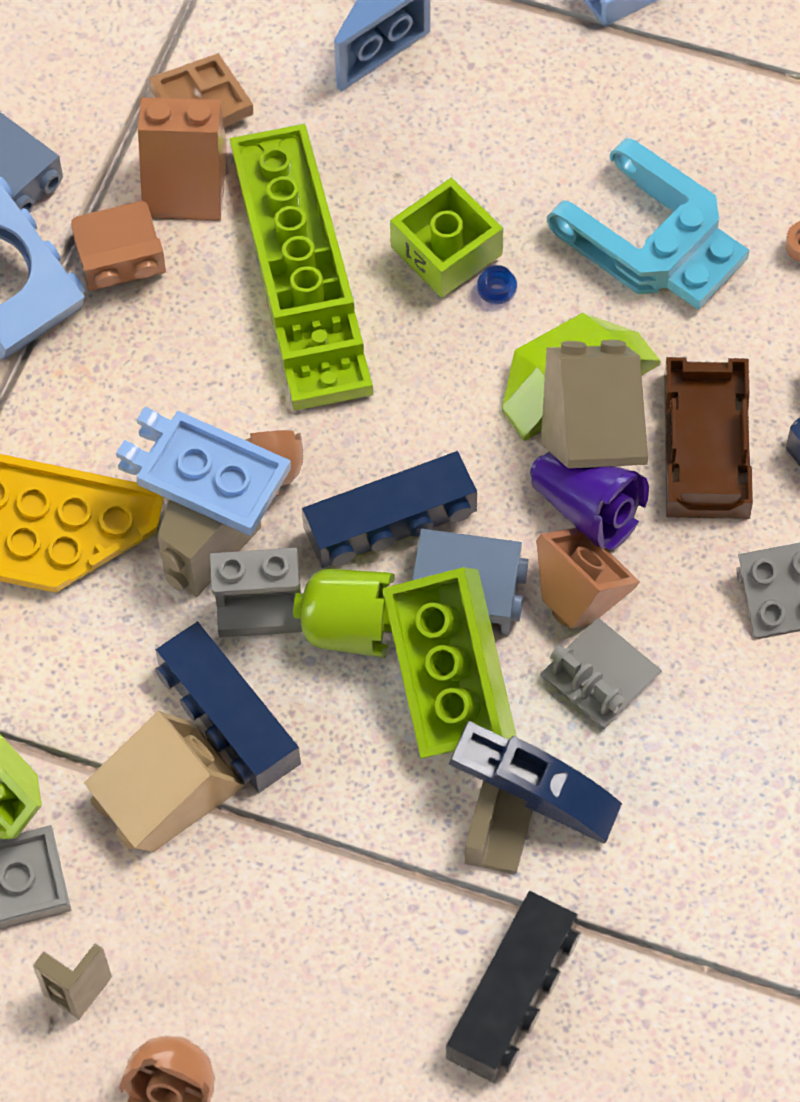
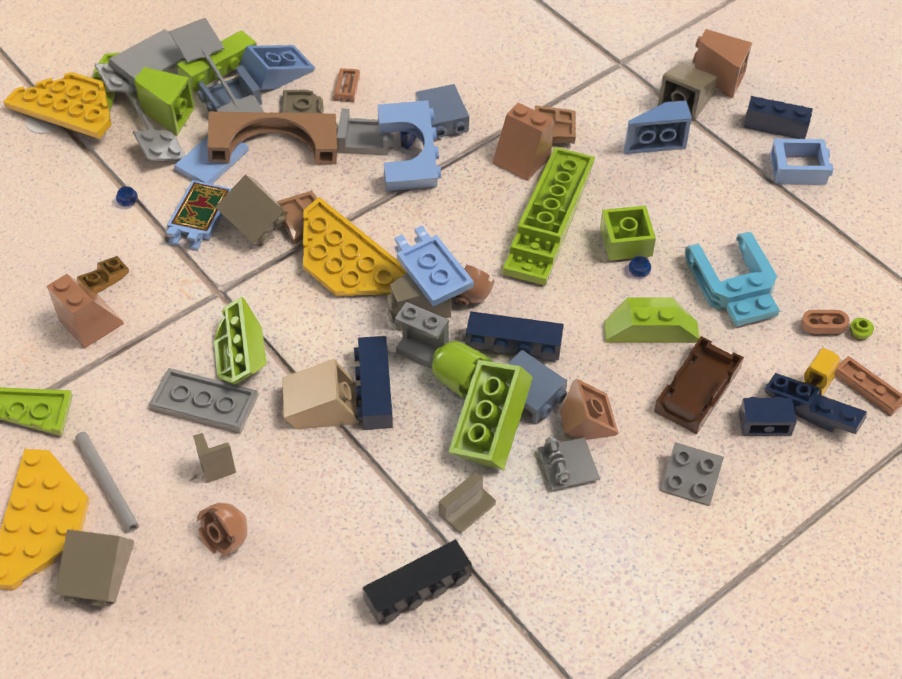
camera: 30 degrees right, 10 degrees down
(118, 245) = (470, 167): nougat bracket -> none
(539, 779) = (497, 491): dark blue slope -> none
(592, 498) = (620, 380): dark purple cone -> none
(594, 405) = (645, 334): dark tan slope -> none

